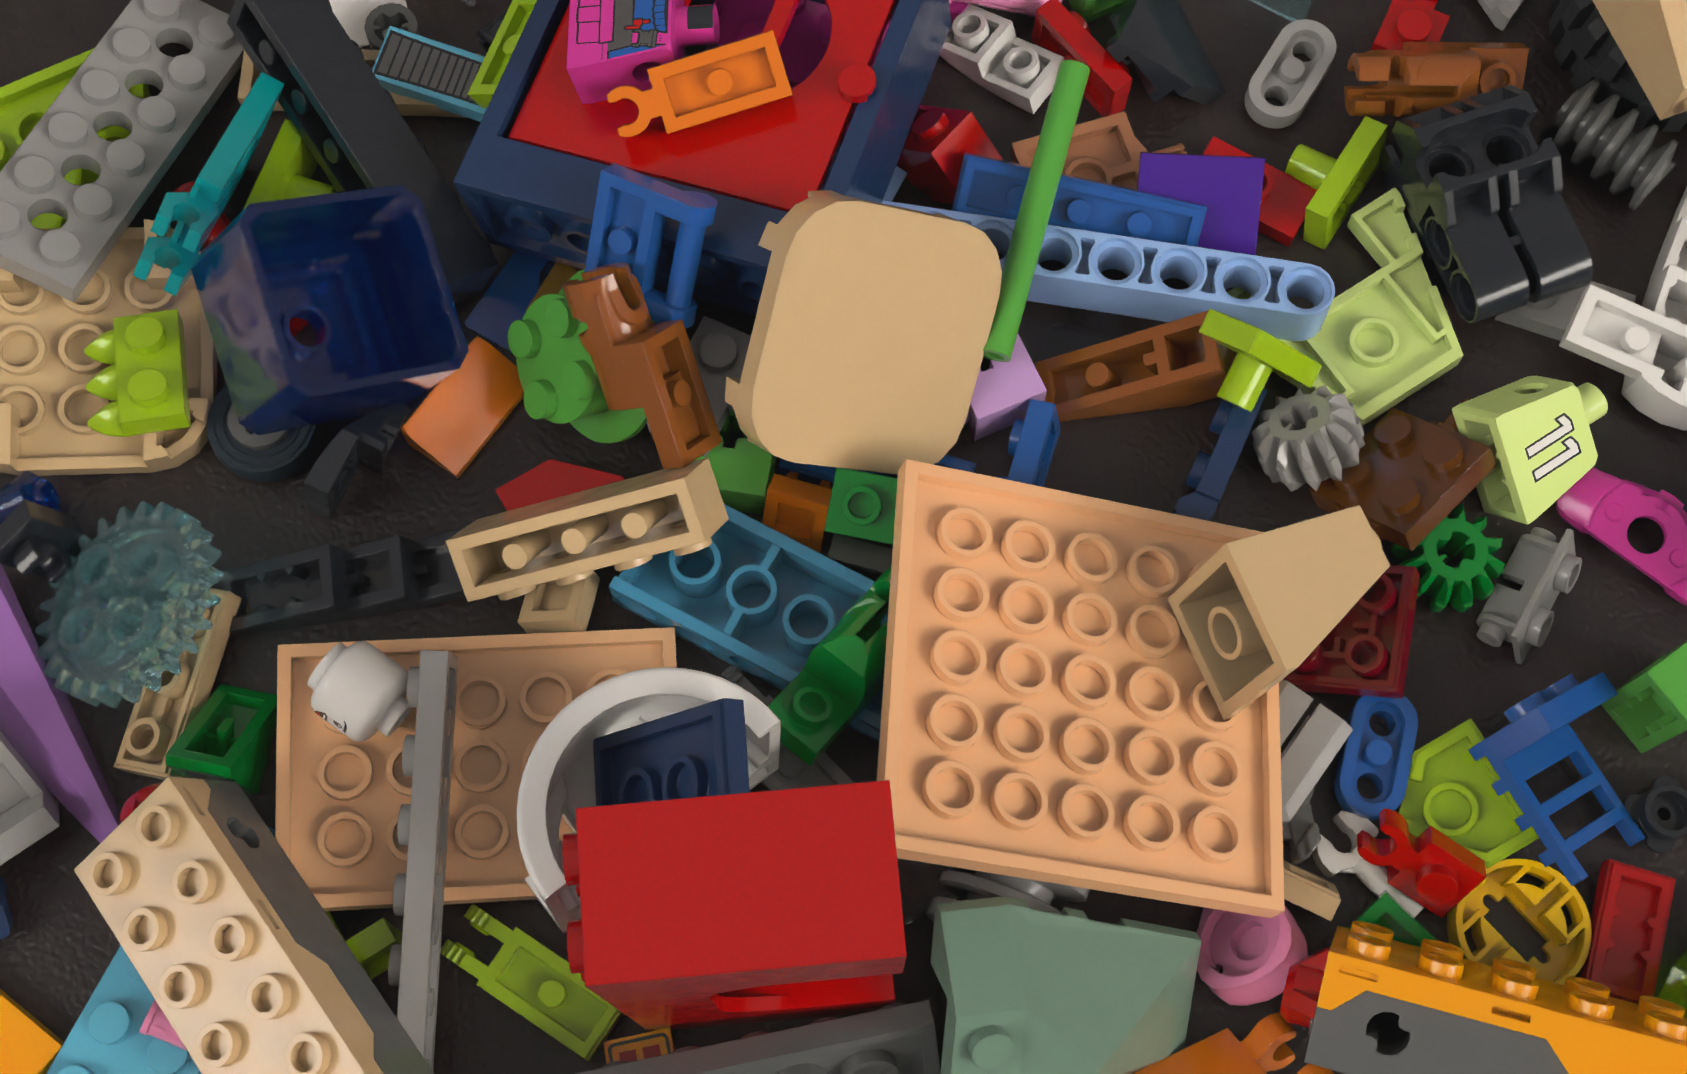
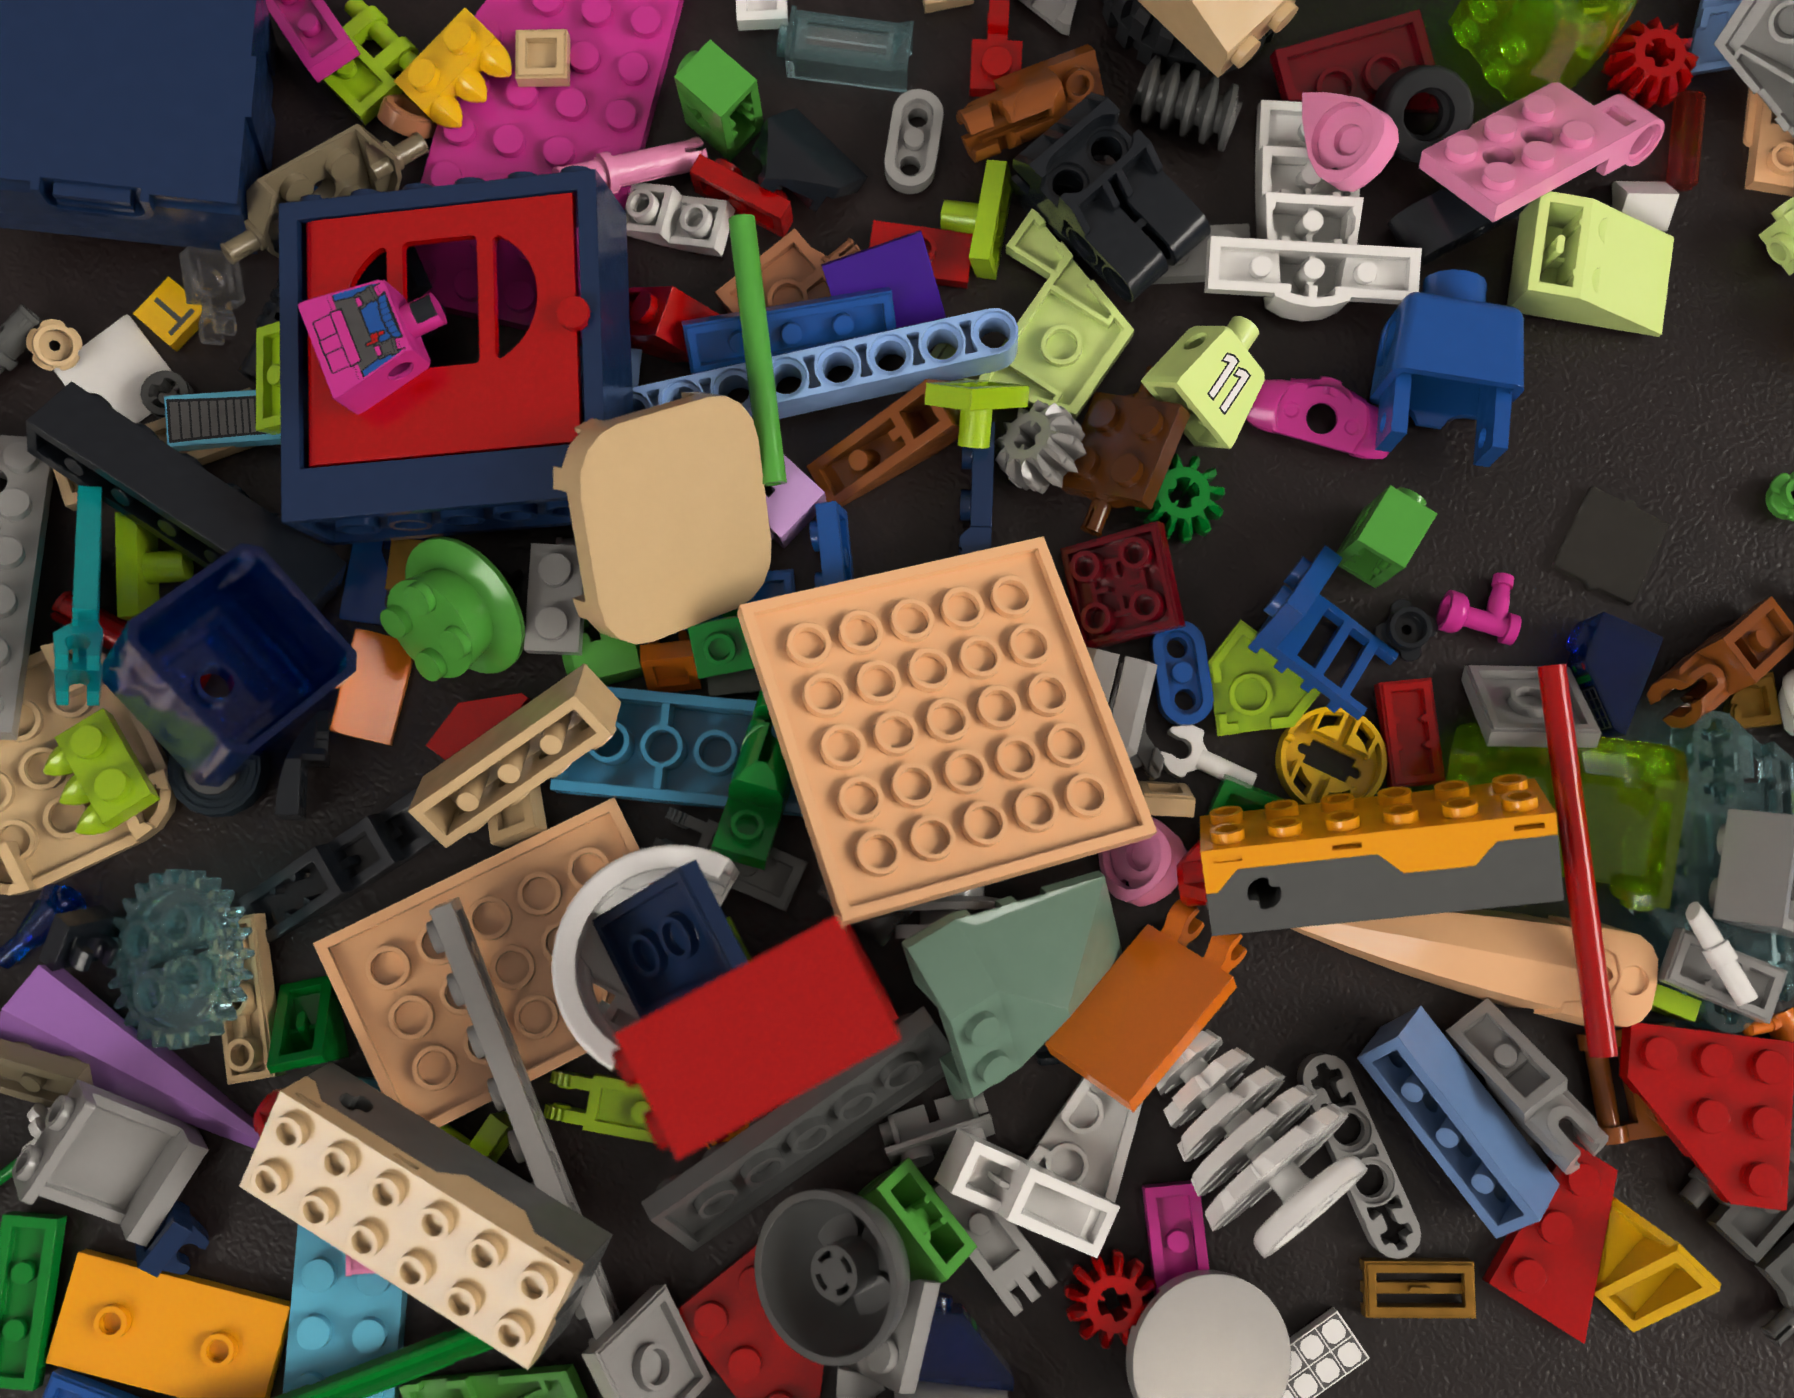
camera: 25 degrees left, 10 degrees up
(359, 691) = (394, 955): white head -> none
(630, 229) = (447, 521): blue plate -> none
(643, 362) = (501, 610): dark orange plate -> none
(708, 85) = (454, 365): orange plate -> none
(1273, 600) = (1065, 601): tan slope -> none
(1424, 867) = (1248, 747): red plate -> none
(1526, 614) = (1255, 478): light grey hinge -> none

